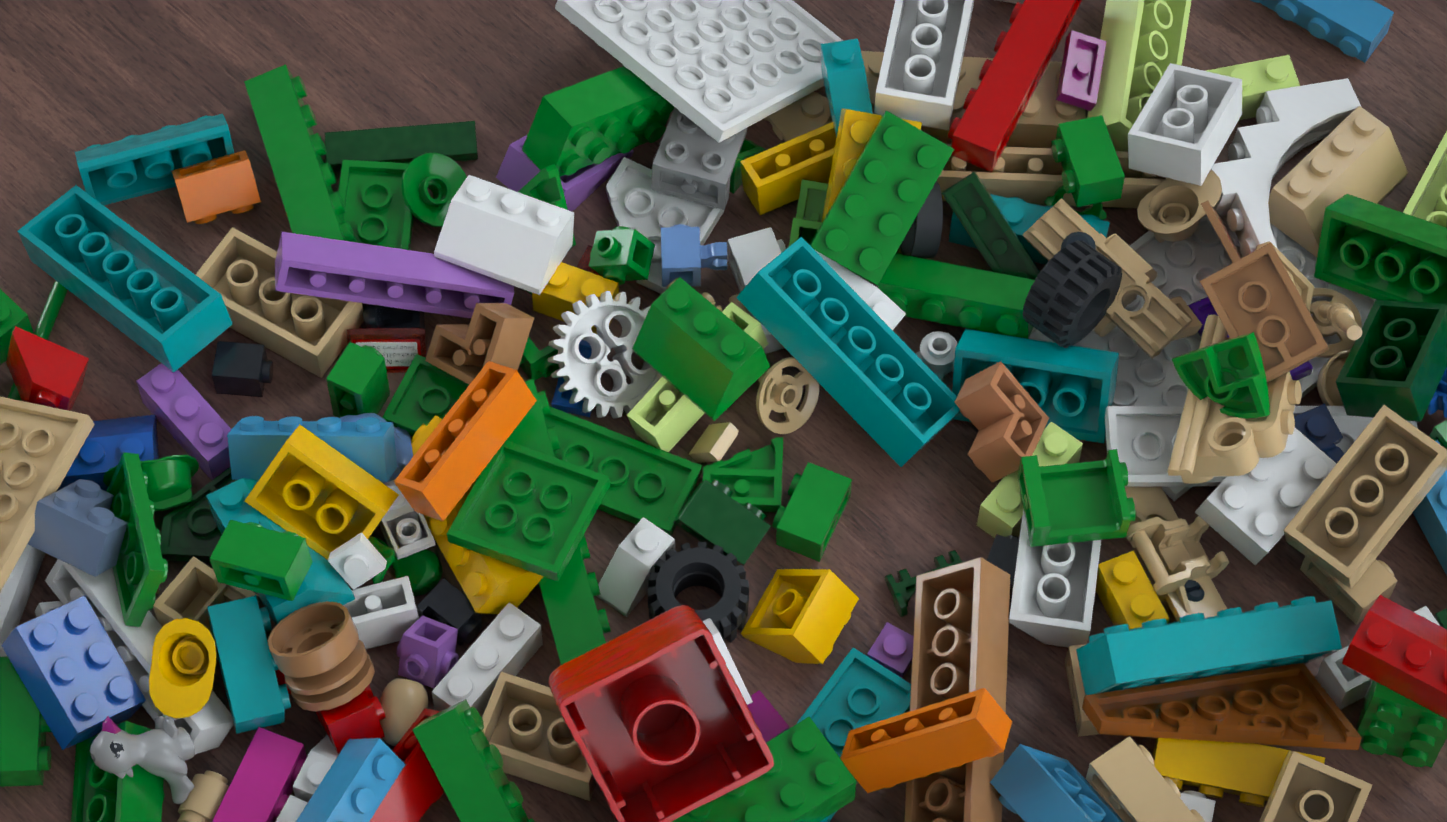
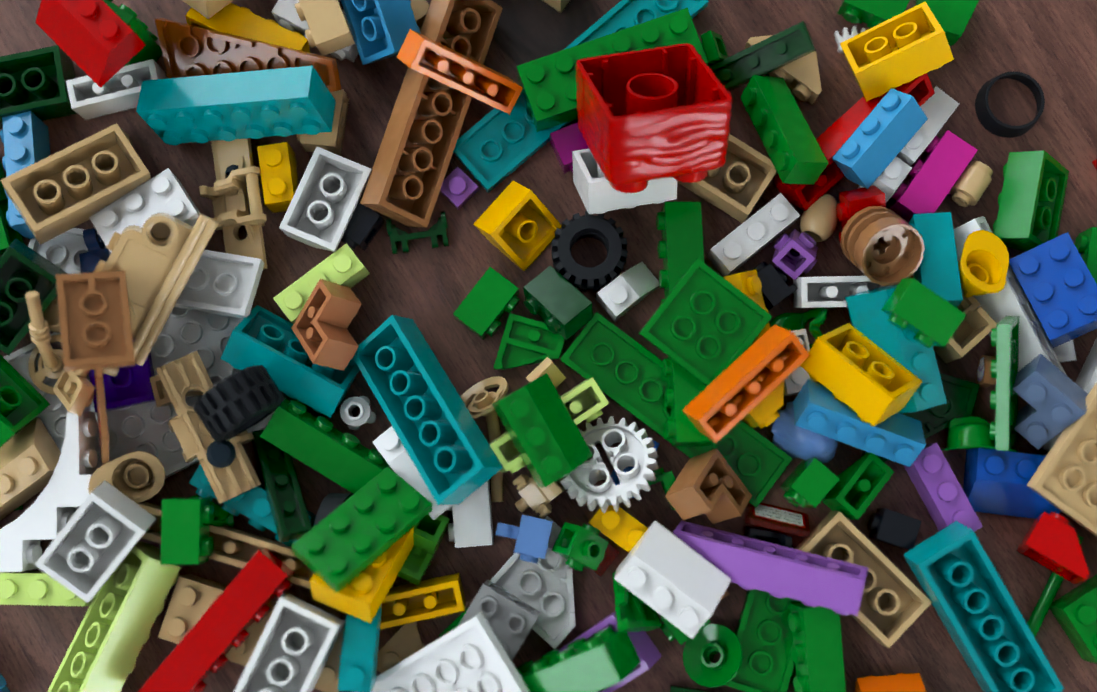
camera: 160 degrees left, 20 degrees up
(157, 751) = (1008, 208): light grey animal -> none
(298, 391) = (858, 486): none -> green slope
(357, 561) = (840, 319): white plate -> none
(1075, 500) = (293, 242): green panel -> none
(1081, 70) = (163, 621): plate -> none
(1228, 375) = (141, 284): green brick -> none

